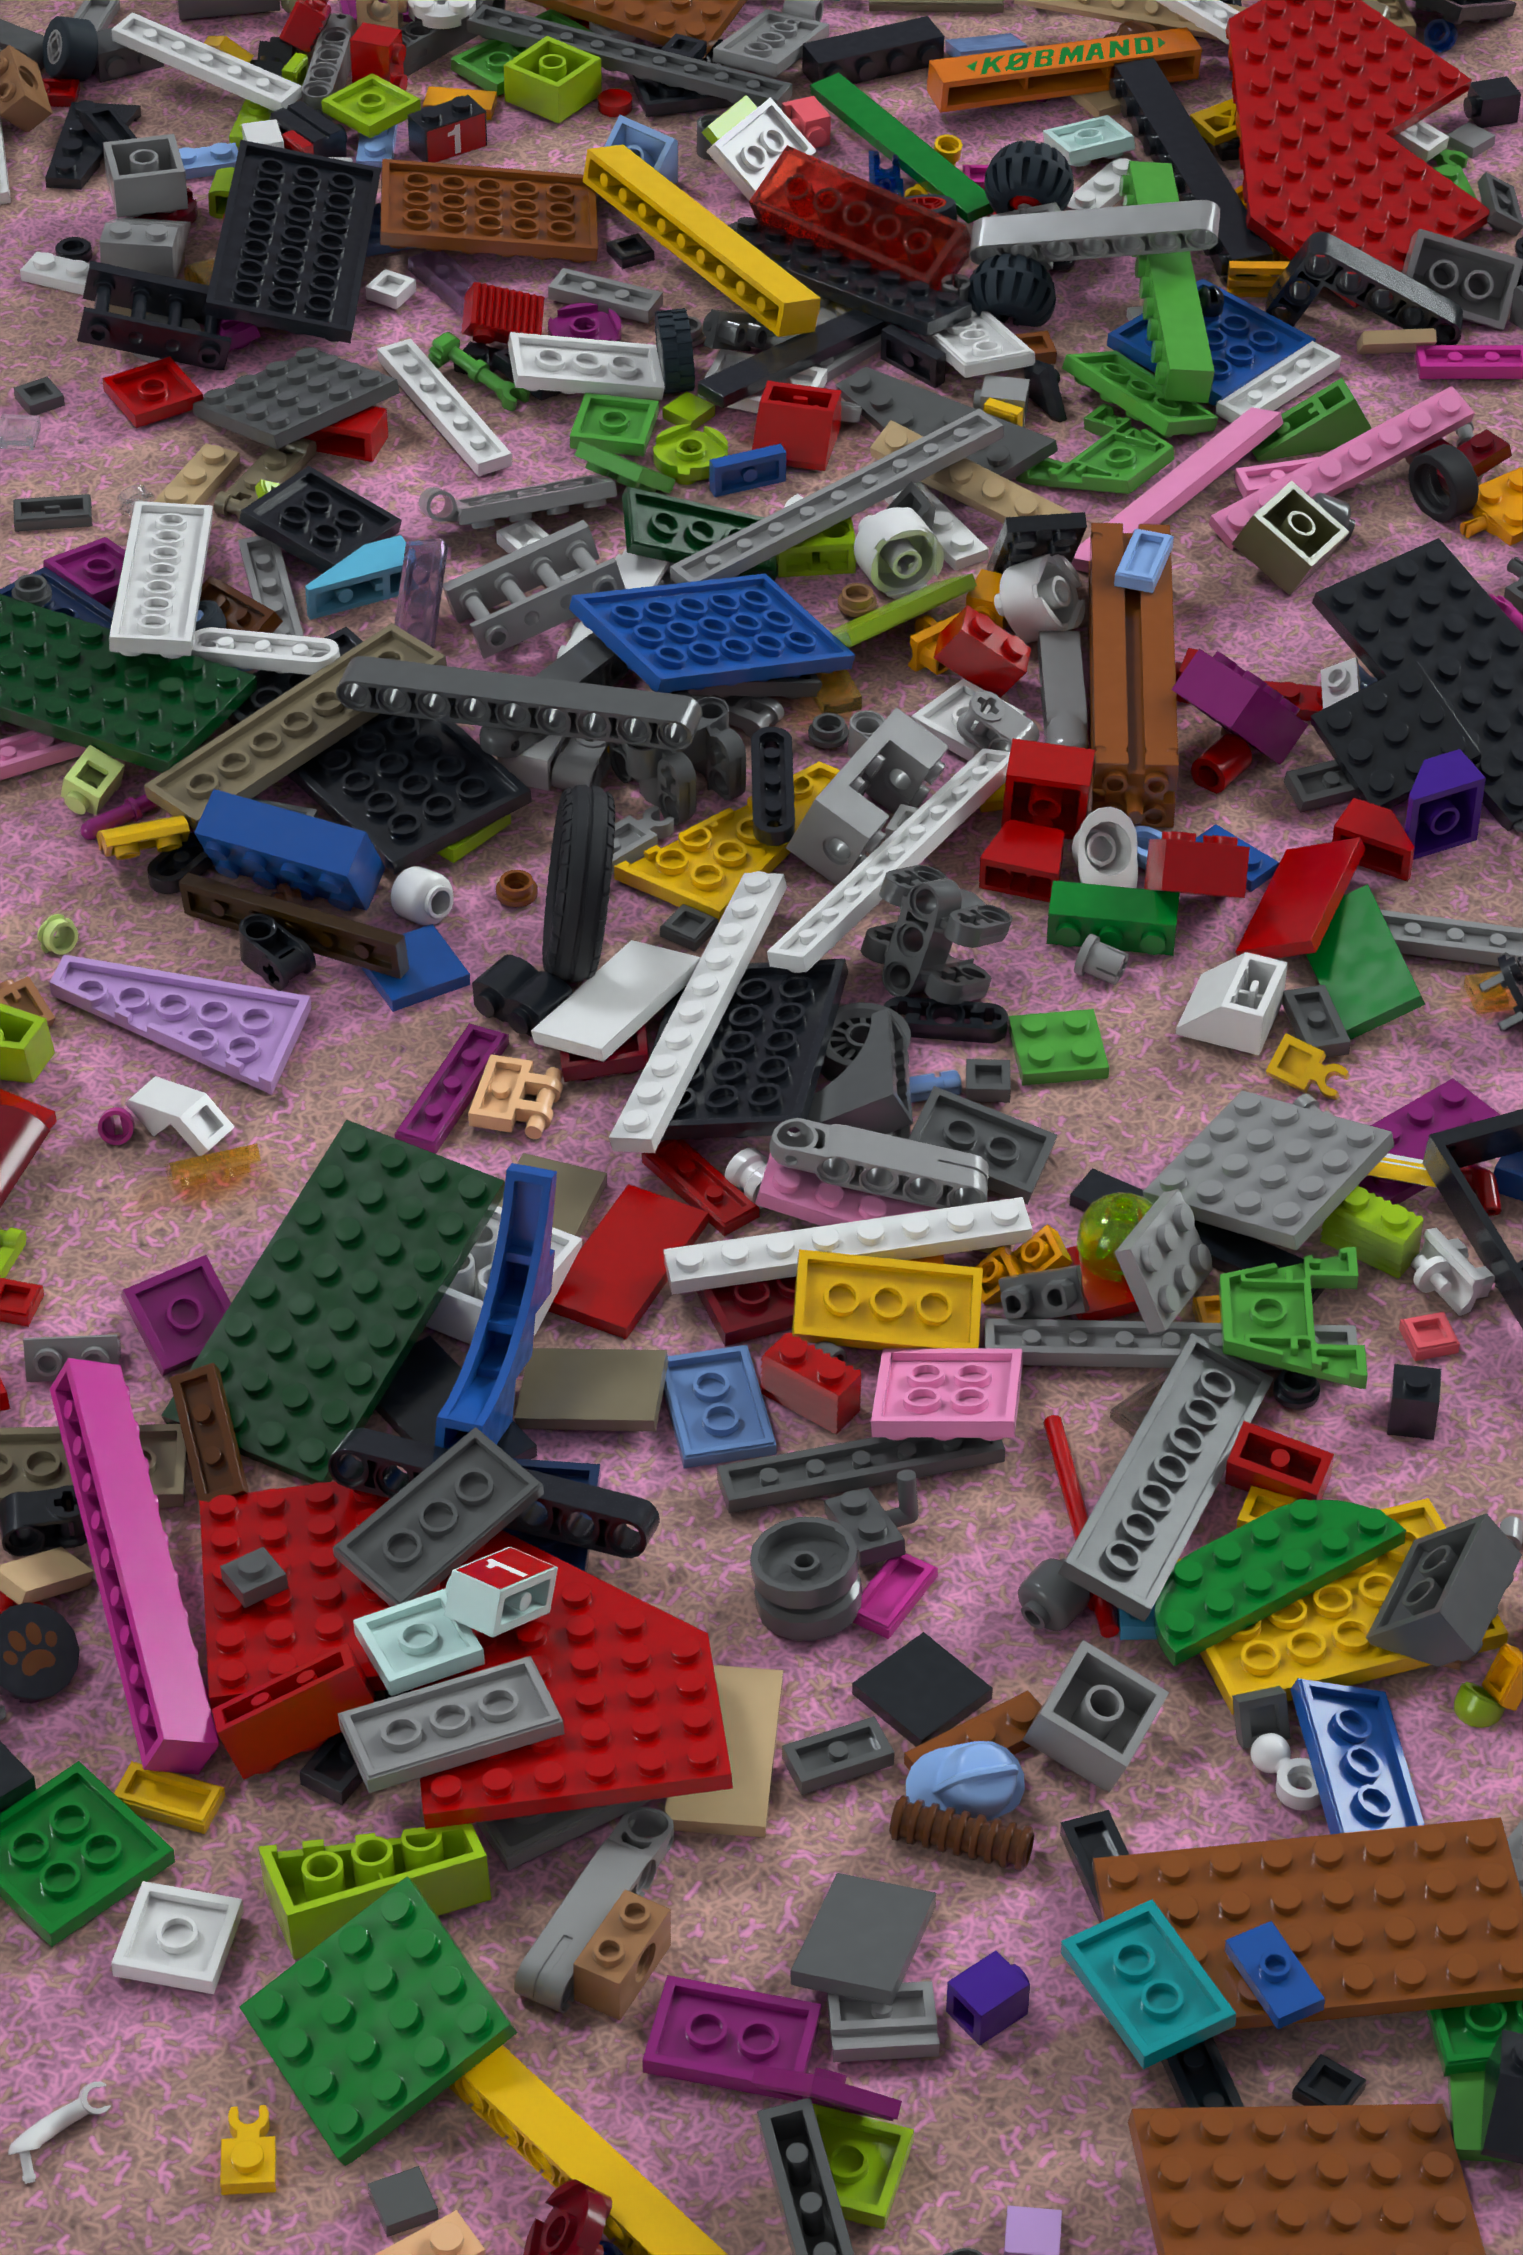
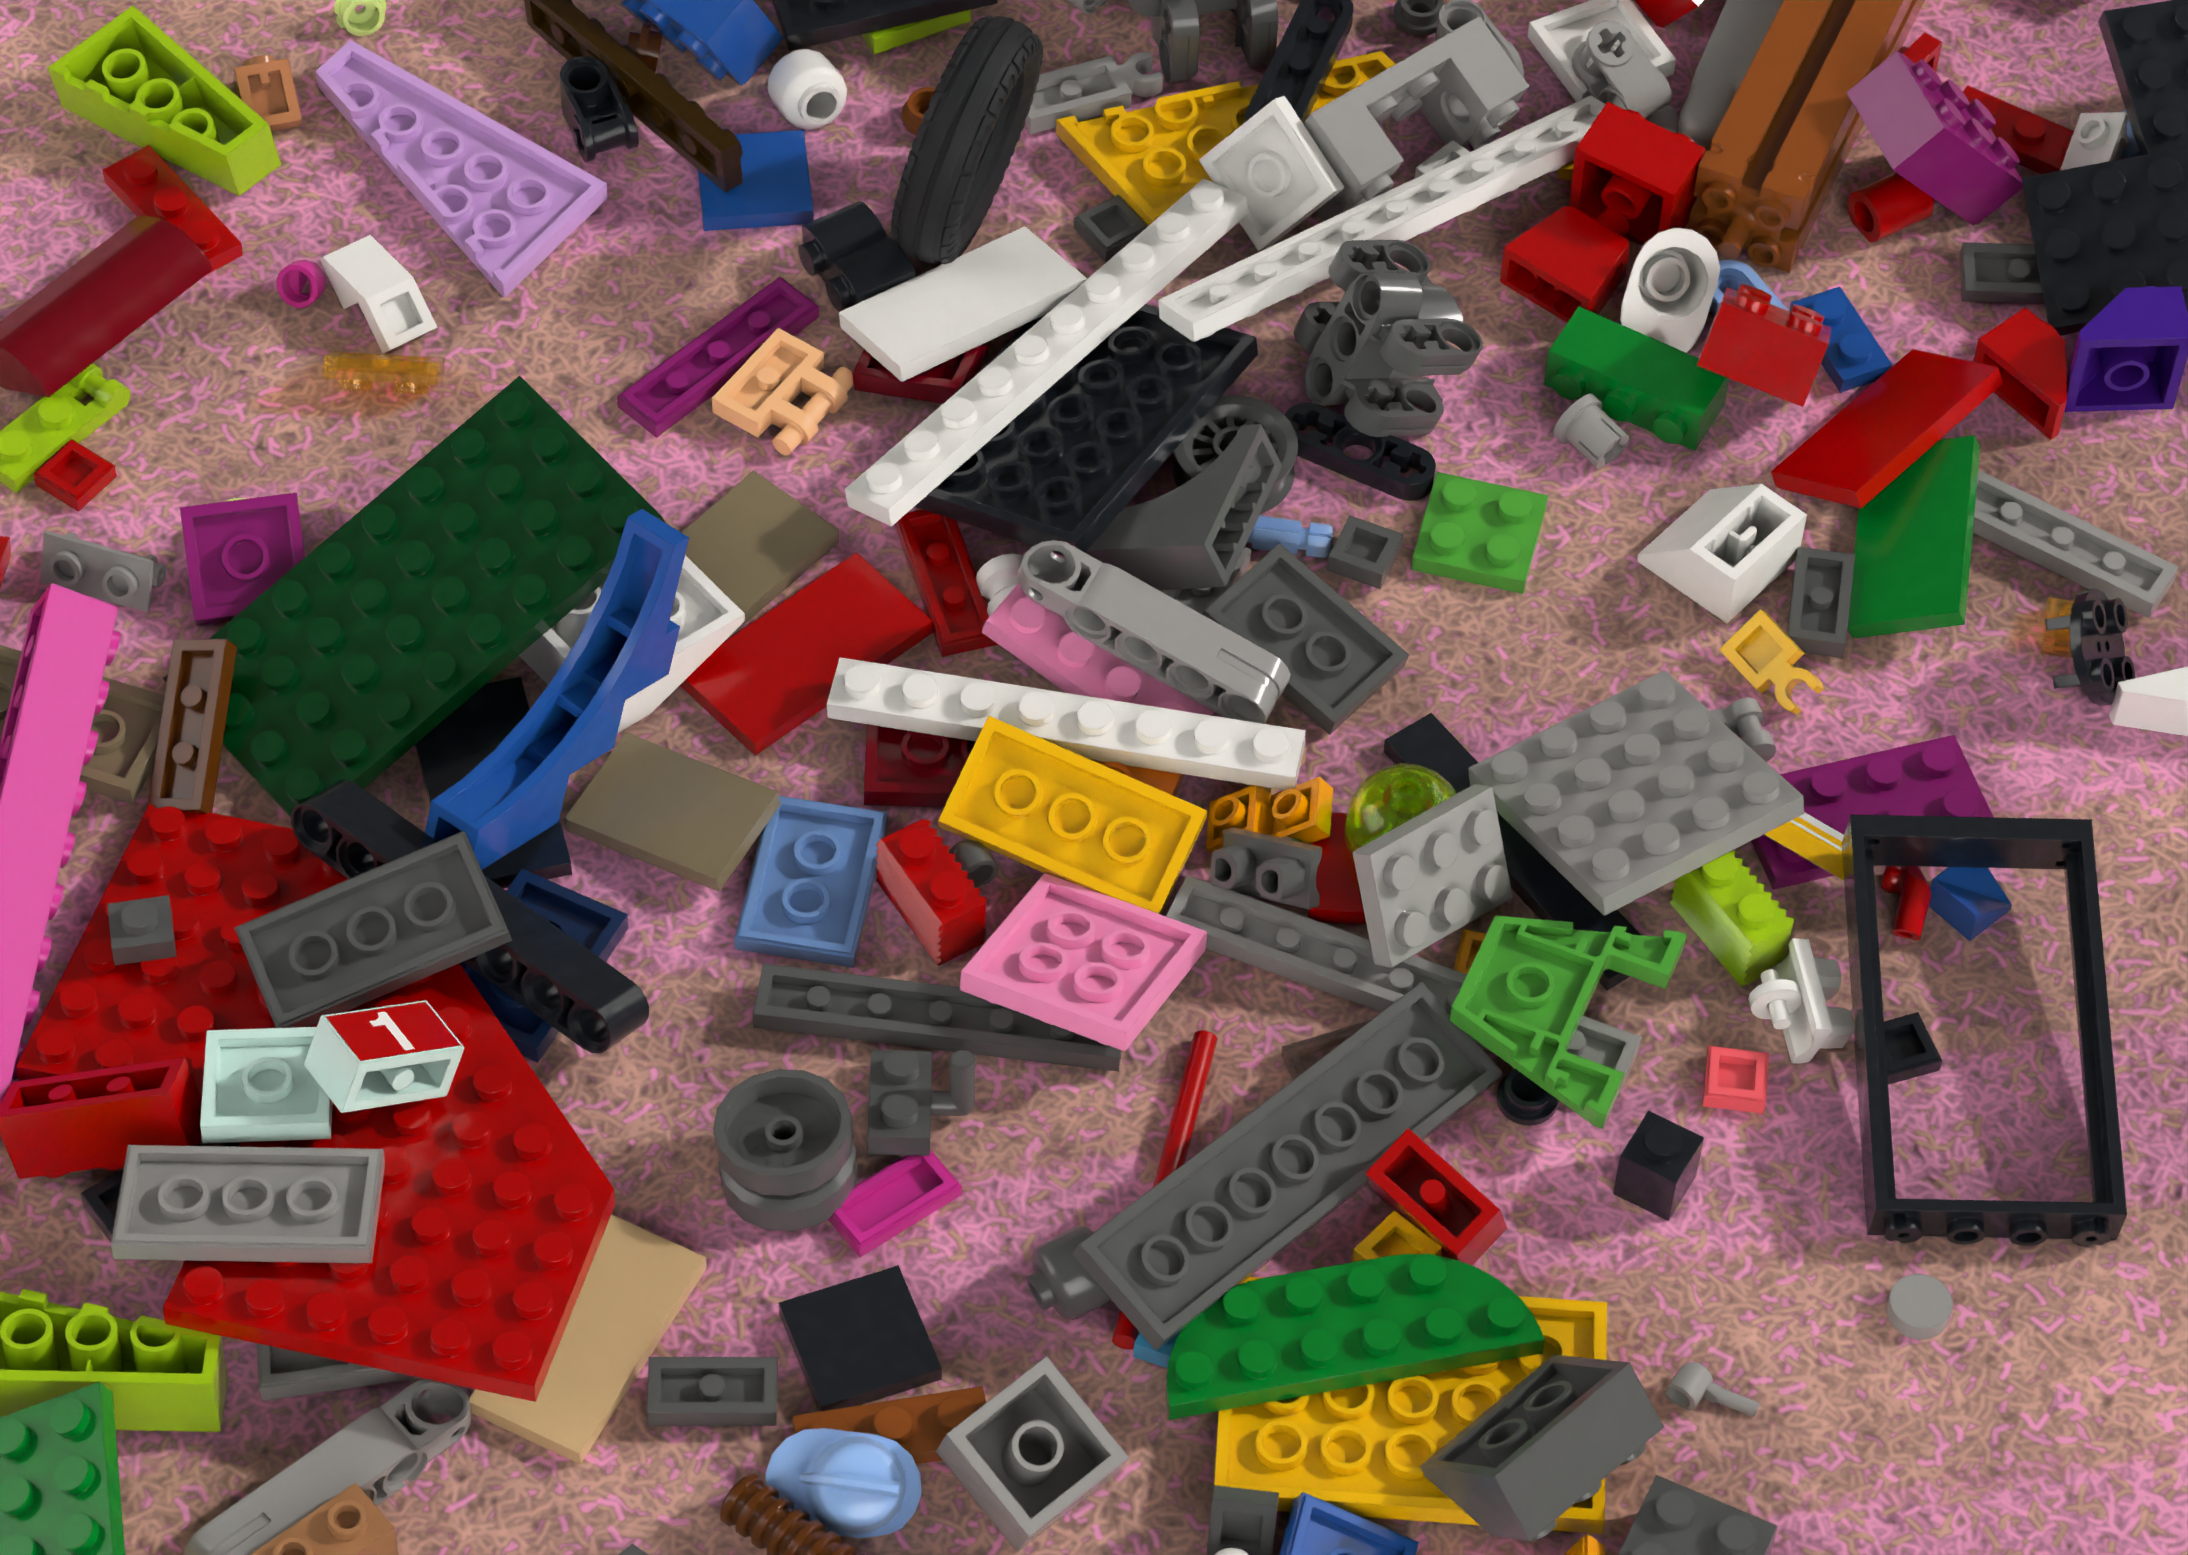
camera: 20 degrees right, 10 degrees up
(800, 848) = (1276, 168): none -> white plate

